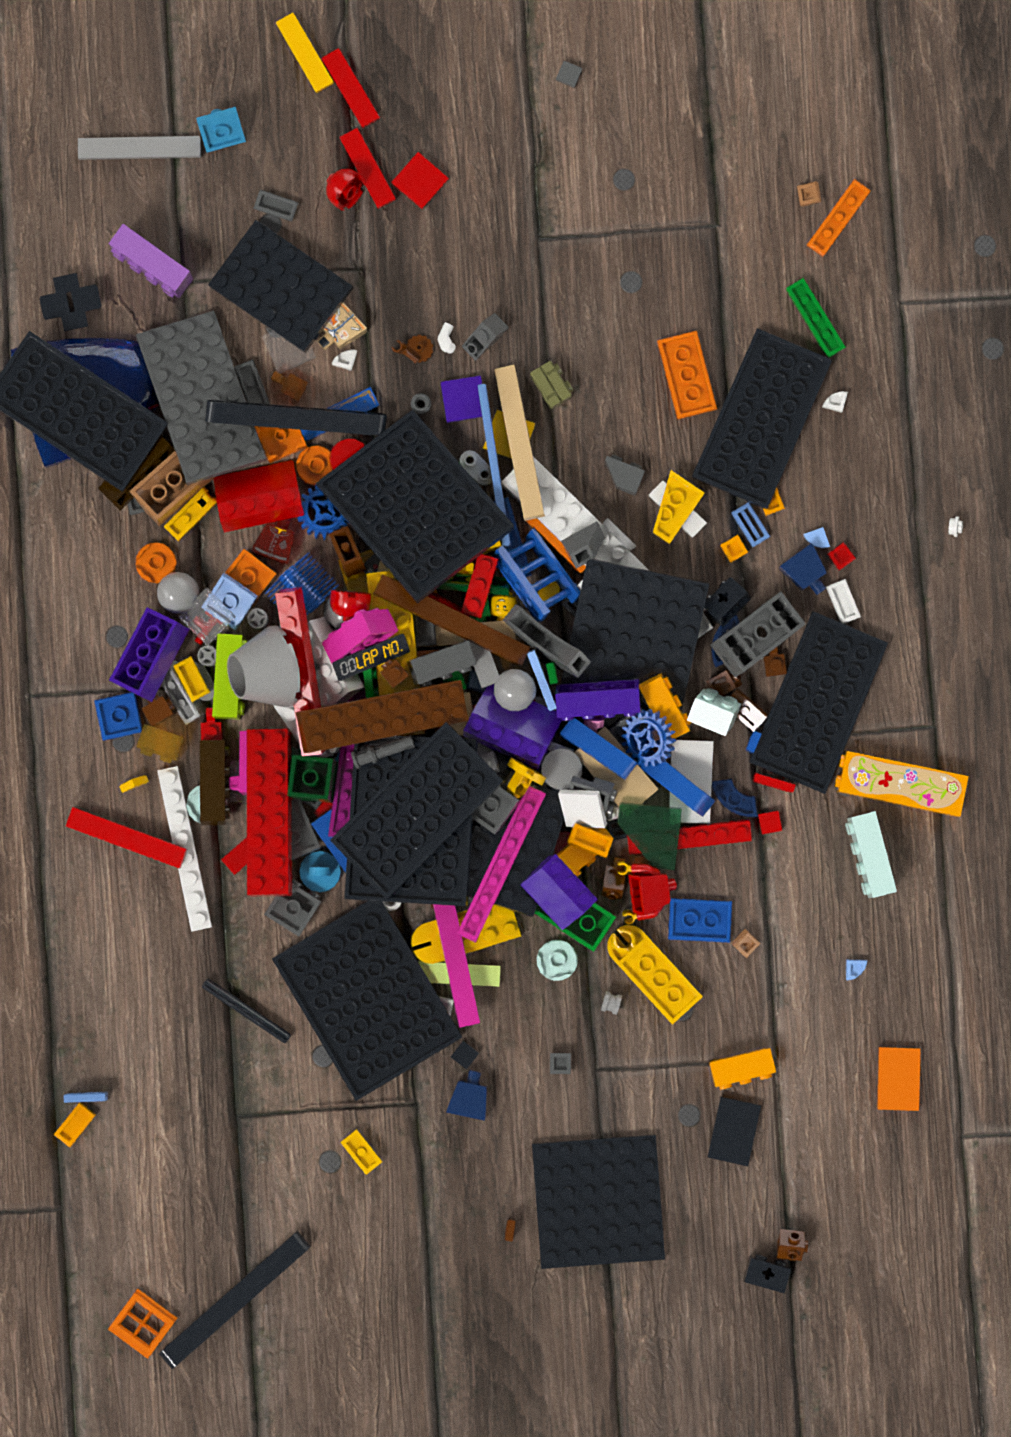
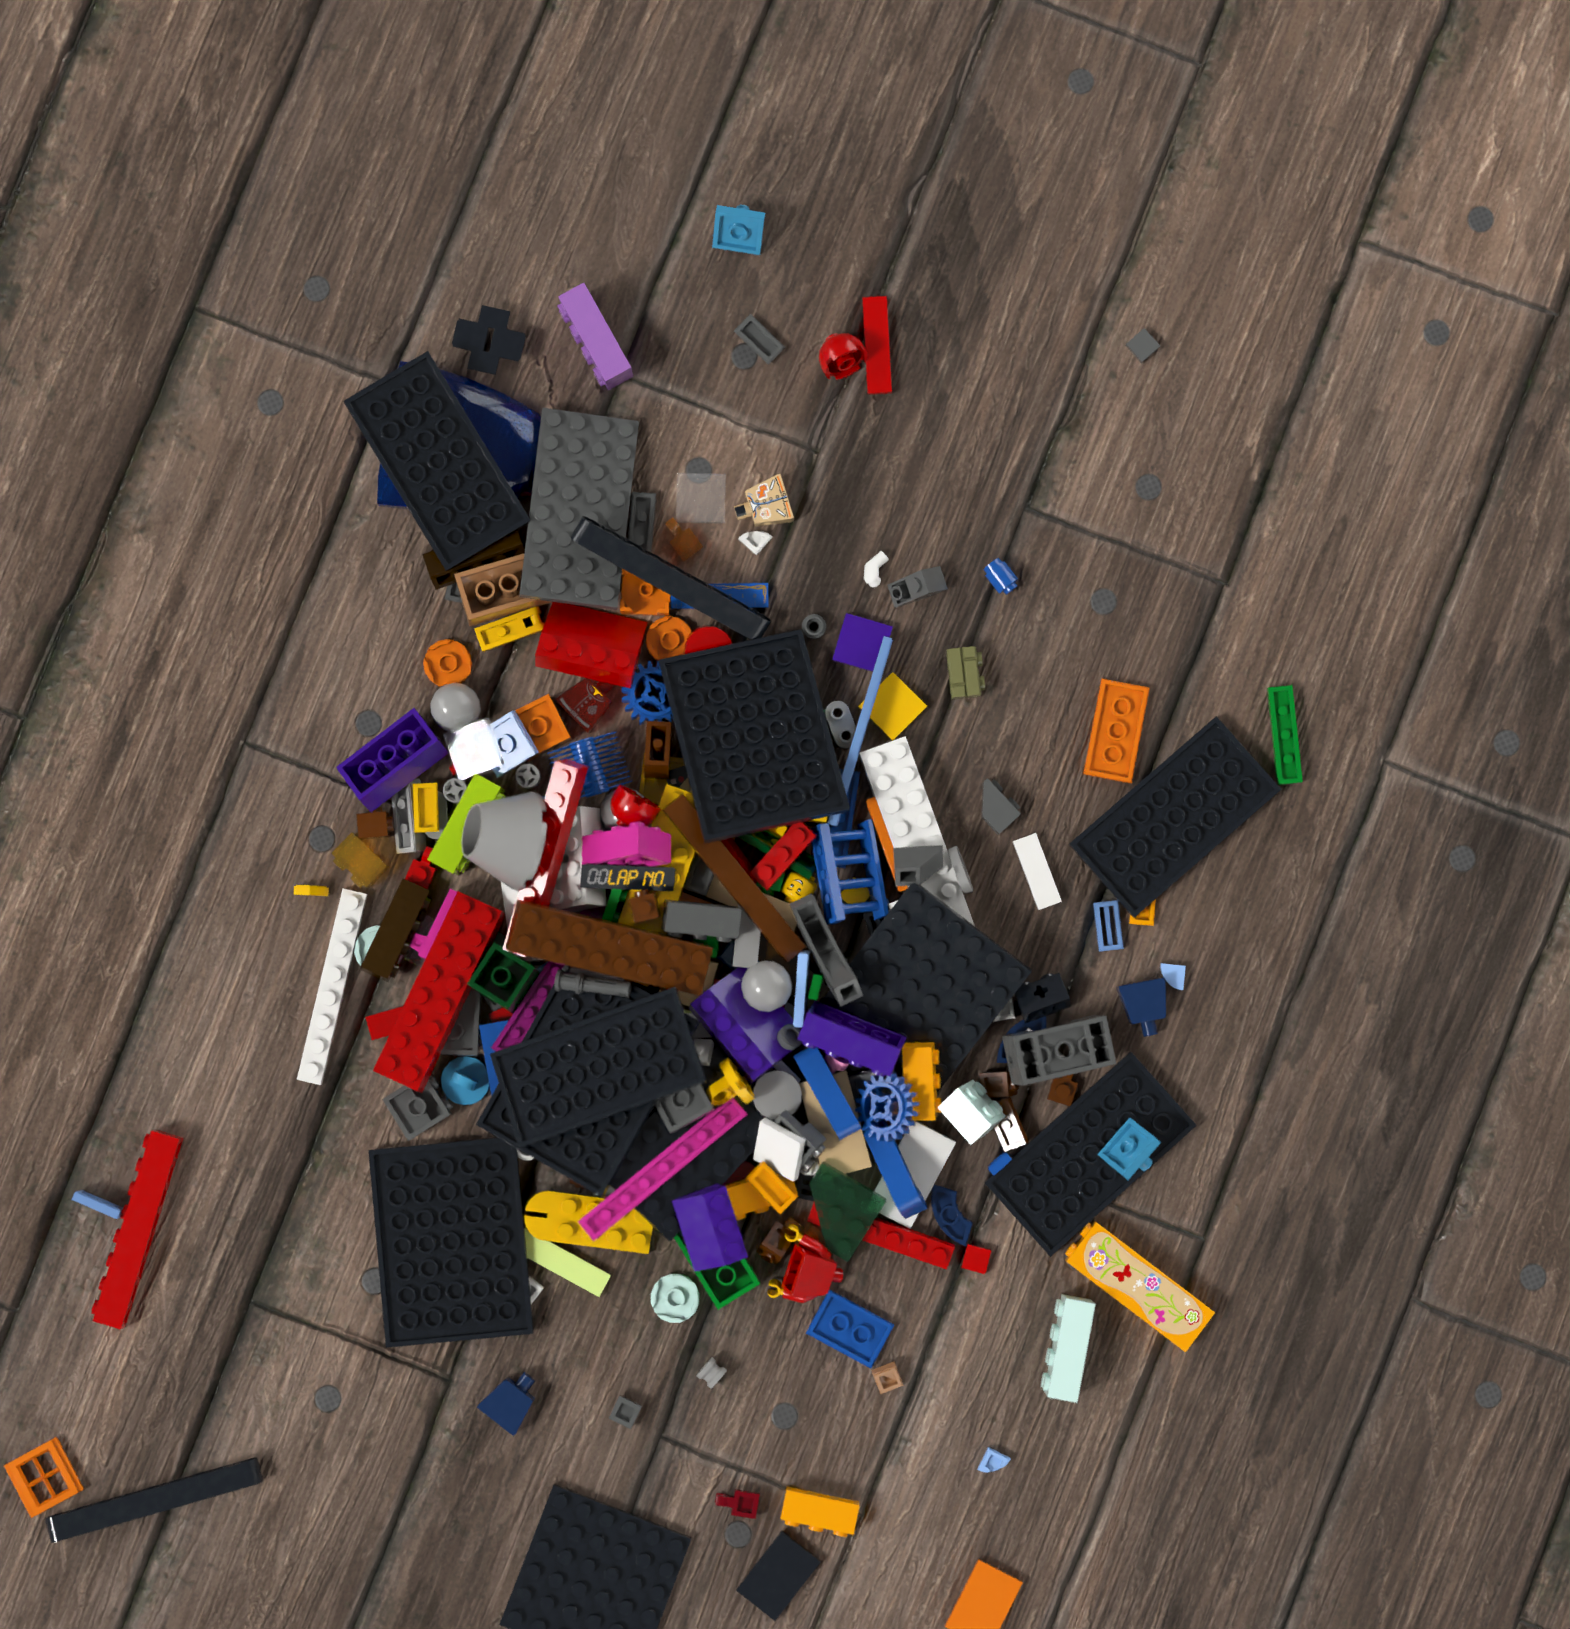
camera: 30 degrees right, 0 degrees up
(75, 1124) = (73, 1227): light orange tile -> none
(118, 716) = (329, 810): blue tile -> none
(124, 1101) = (137, 1230): none -> red brick
(126, 837) = (275, 945): red tile -> none
(139, 147) = (642, 208): light grey tile -> none
(246, 1011) = (315, 1193): black axle -> none
(280, 286) = (722, 429): black plate -> none
(304, 52) = (868, 189): yellow tile -> none
(350, 88) = (899, 250): red tile -> none
(361, 1151) = (365, 1405): yellow plate -> none
(403, 350) = (822, 559): reddish brown hand -> none
(420, 180) = (927, 385): red tile -> none
(420, 347) = (840, 566): reddish brown piece -> none
(456, 965) = (562, 1255): dark pink tile -> none
(464, 1055) = (527, 1353): black tile -> none
(510, 1226) = (485, 1566): reddish brown tile -> none
(519, 443) = (899, 720): tan tile -> none
(544, 299) = (1001, 576): none -> blue brick
(550, 721) = (788, 1037): none -> dark grey tile
(652, 972) = (771, 1361): yellow plate -> none
(676, 506) = (1036, 868): yellow wing -> none
(681, 1090) = (742, 1503): none -> dark red plate
(734, 548) = (1078, 943): light orange tile -> none
(774, 783) = (1000, 1218): red tile -> none
(809, 194) = (1341, 597): medium nougat tile -> none
(836, 401) = (1264, 836): white tile -> none
(838, 218) = (1361, 638): orange tile -> none
(841, 556) = (1190, 1006): red tile -> none
(843, 601) = (1169, 1057): white tile -> none
(846, 683) = (1129, 1149): none -> dark azure tile
(955, 526) = (1329, 1033): white plate -> none

